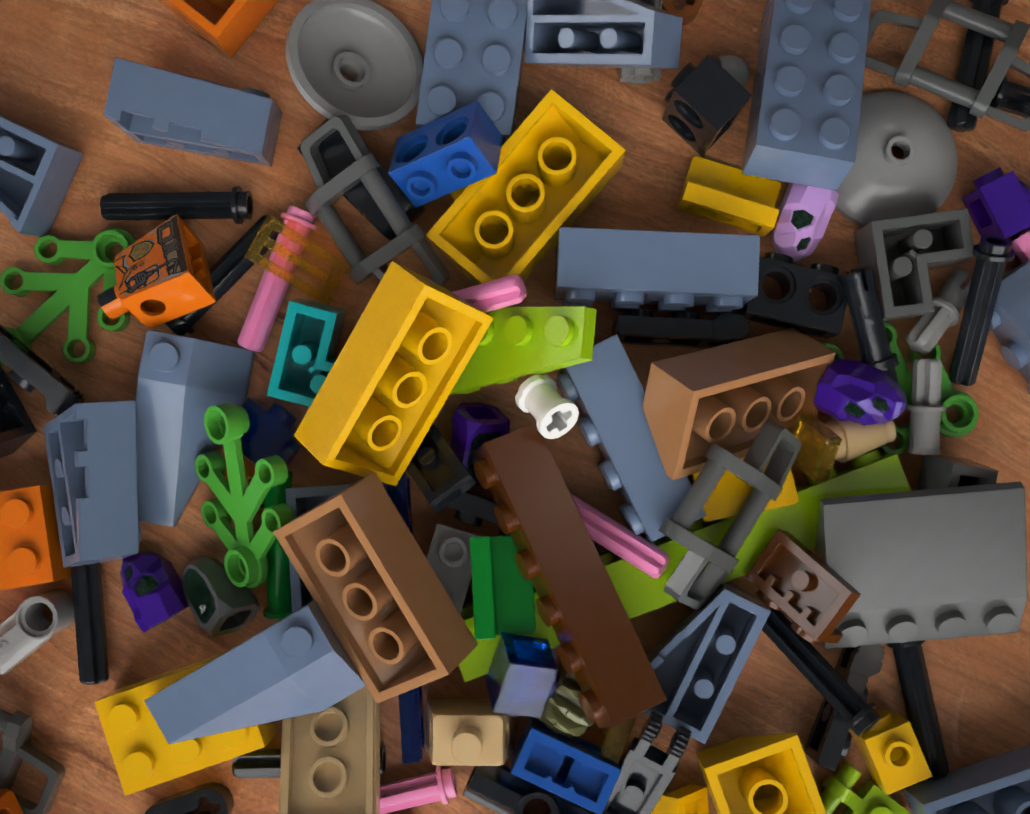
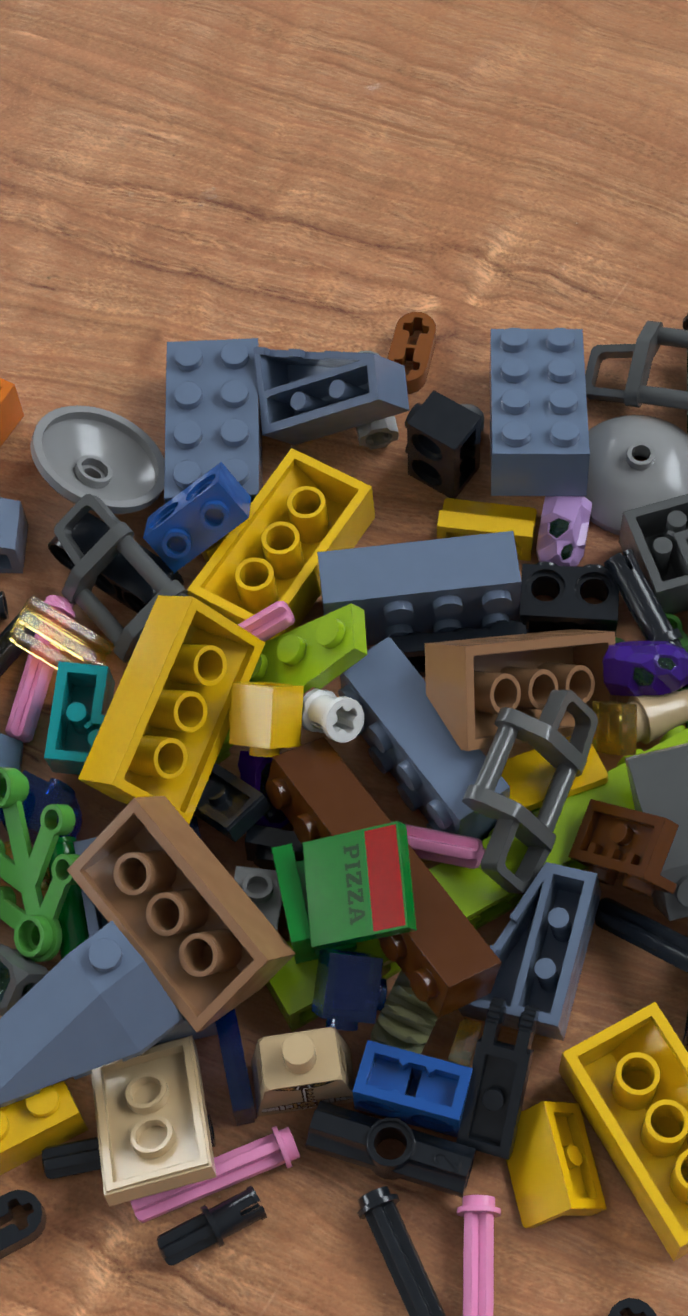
camera: 10 degrees left, 25 degrees down
(483, 398) = (265, 716): none -> yellow brick
(547, 606) = (359, 886): none -> tile

